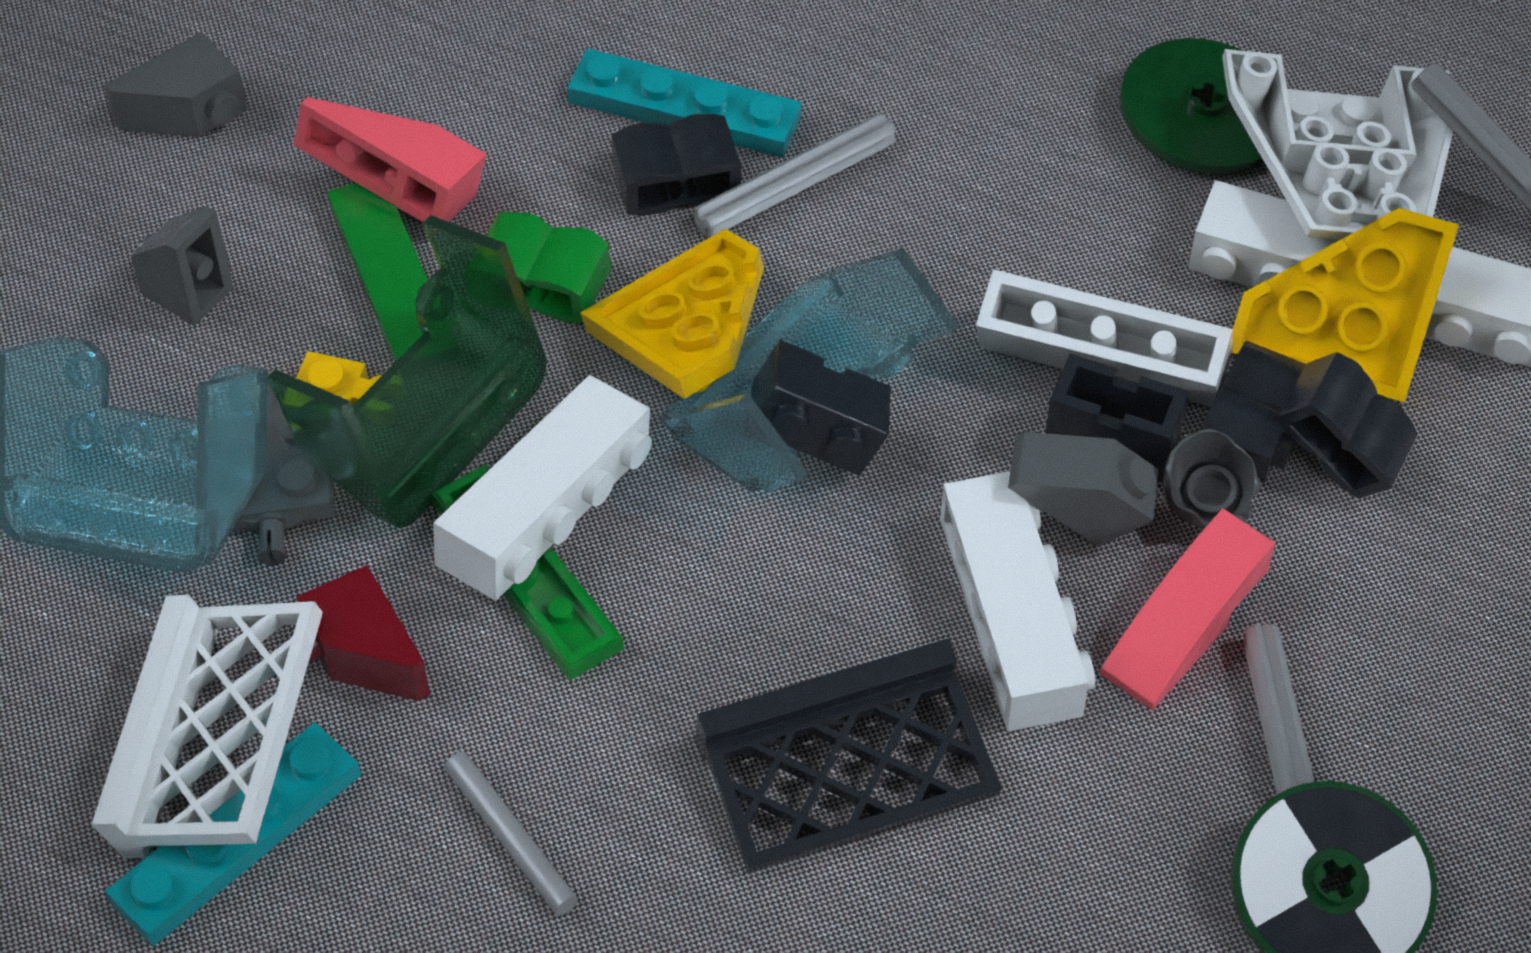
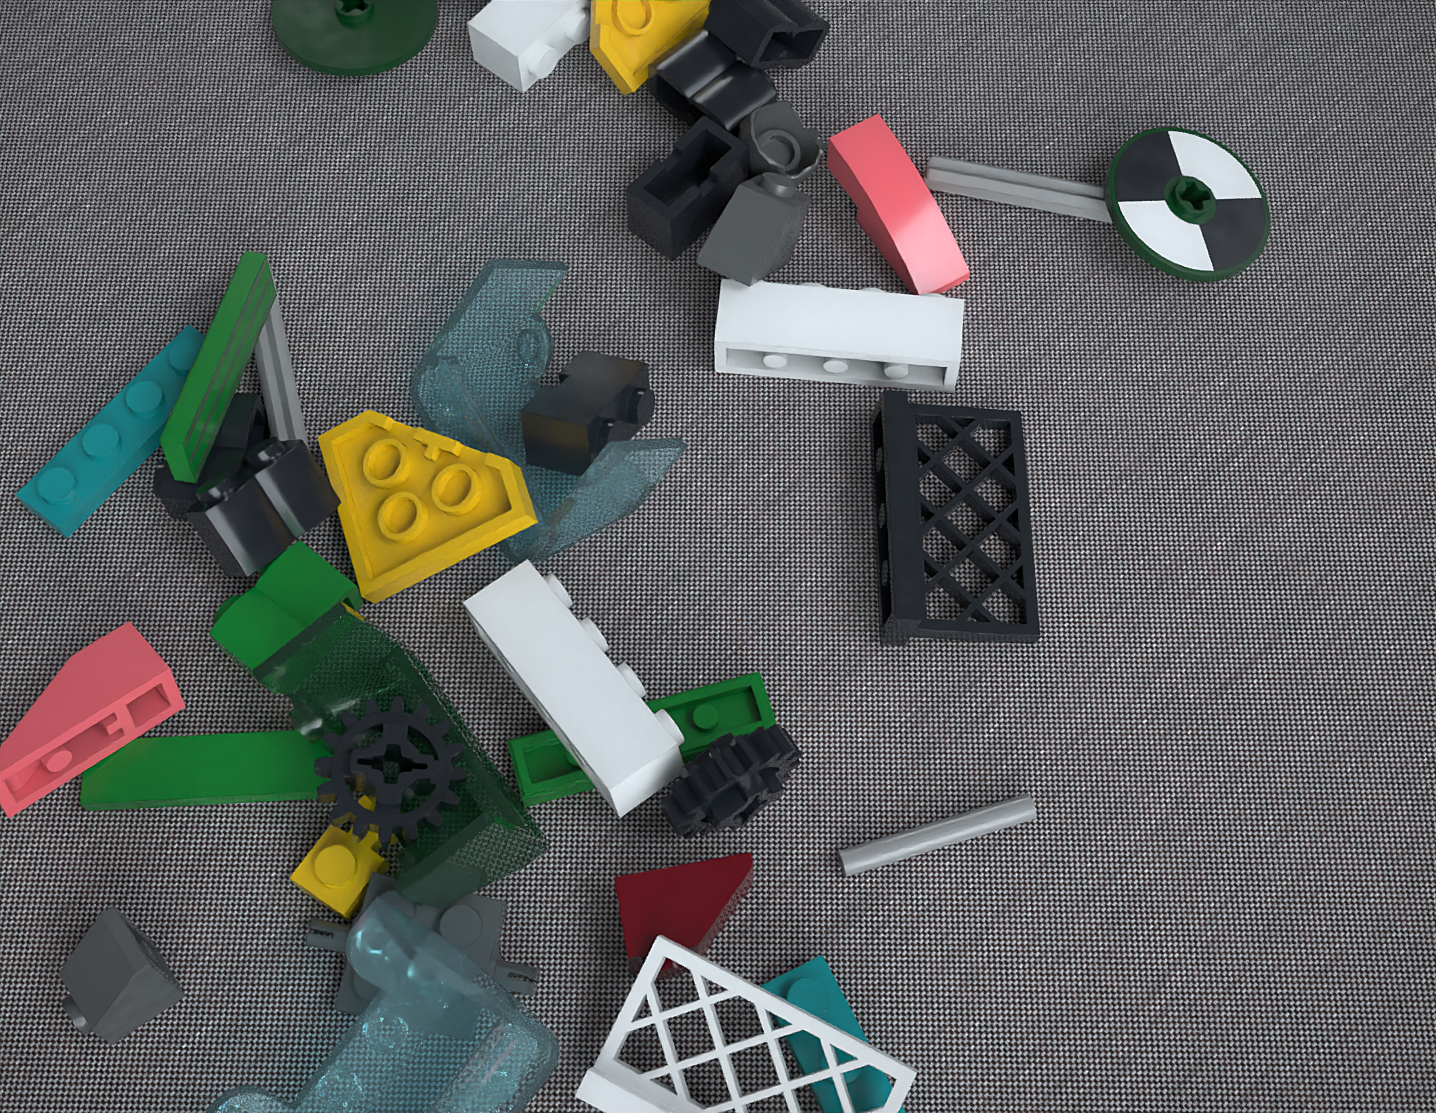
camera: 70 degrees left, 10 degrees up
(430, 356) = (365, 768): none -> black gear
(484, 625) = (731, 781): none -> black gear
(625, 202) = (263, 506): none -> black brick
(744, 120) = (218, 368): none -> green tile
(1052, 321) = (599, 165): white brick -> none

